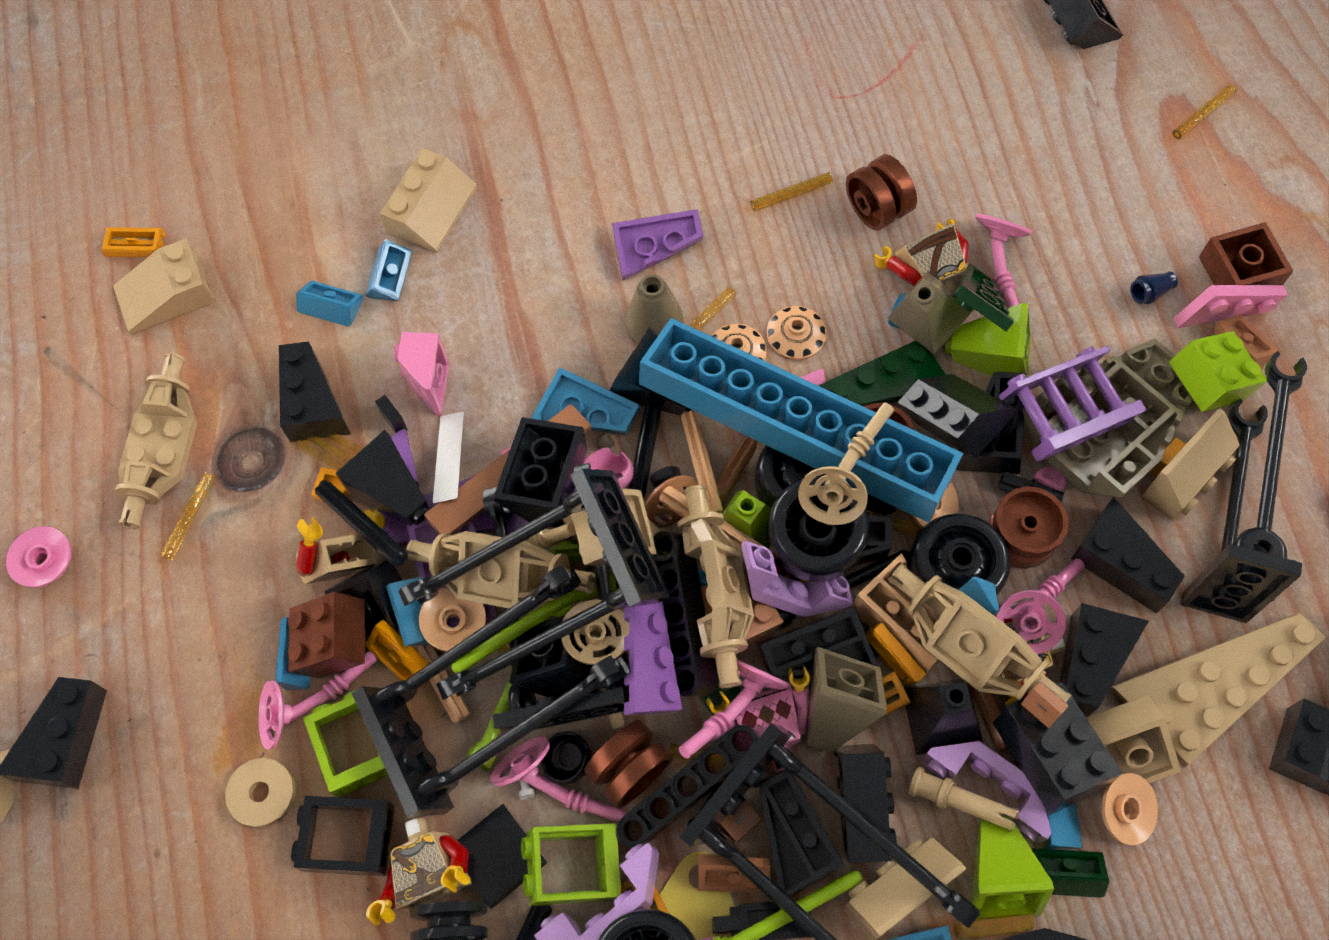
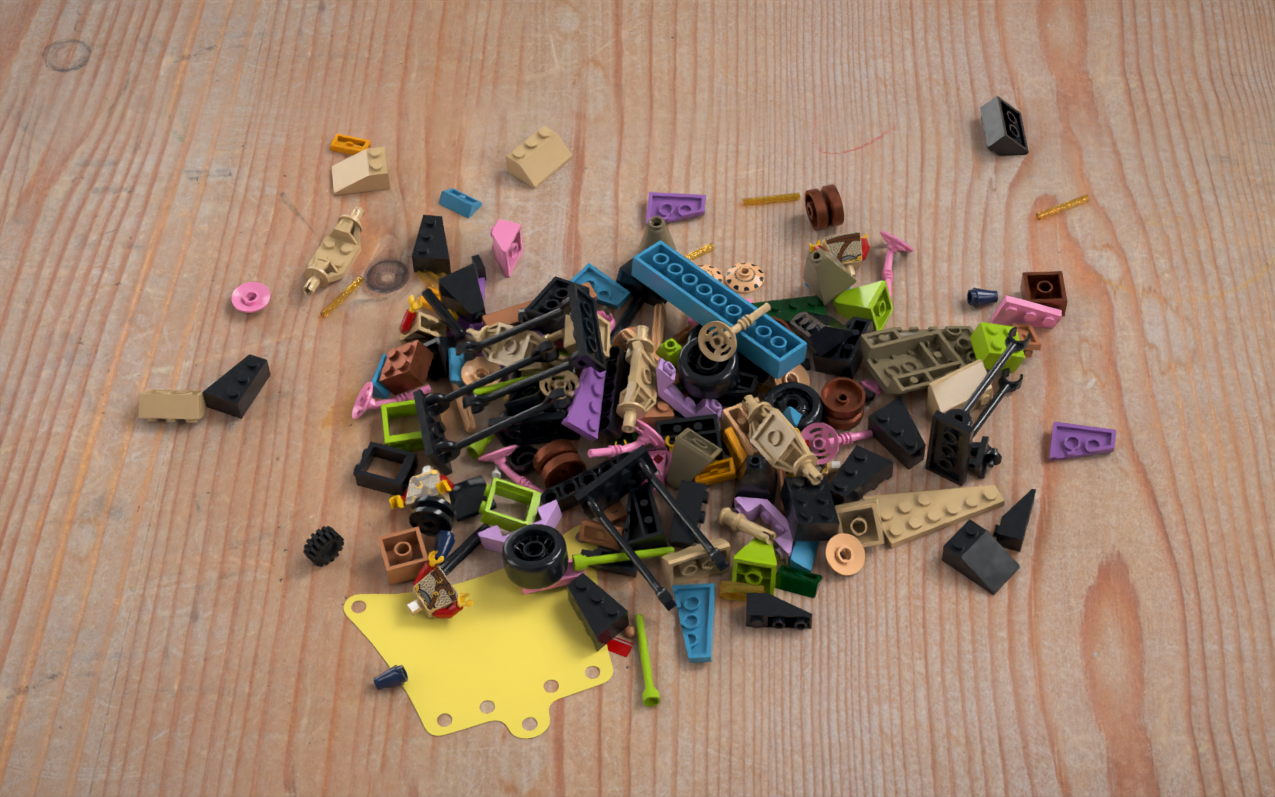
camera: 15 degrees right, 15 degrees down
(243, 783) = (340, 432): tan tile -> none
(388, 271) = (502, 192): dark azure slope -> none
(390, 649) = (443, 382): light orange tile -> none
(448, 457) = (506, 294): white sticker -> none
(981, 293) = (859, 270): dark green wing -> none
(1044, 704) = (804, 475): nougat tile -> none
(1074, 431) = (887, 355): medium lavender fence -> none

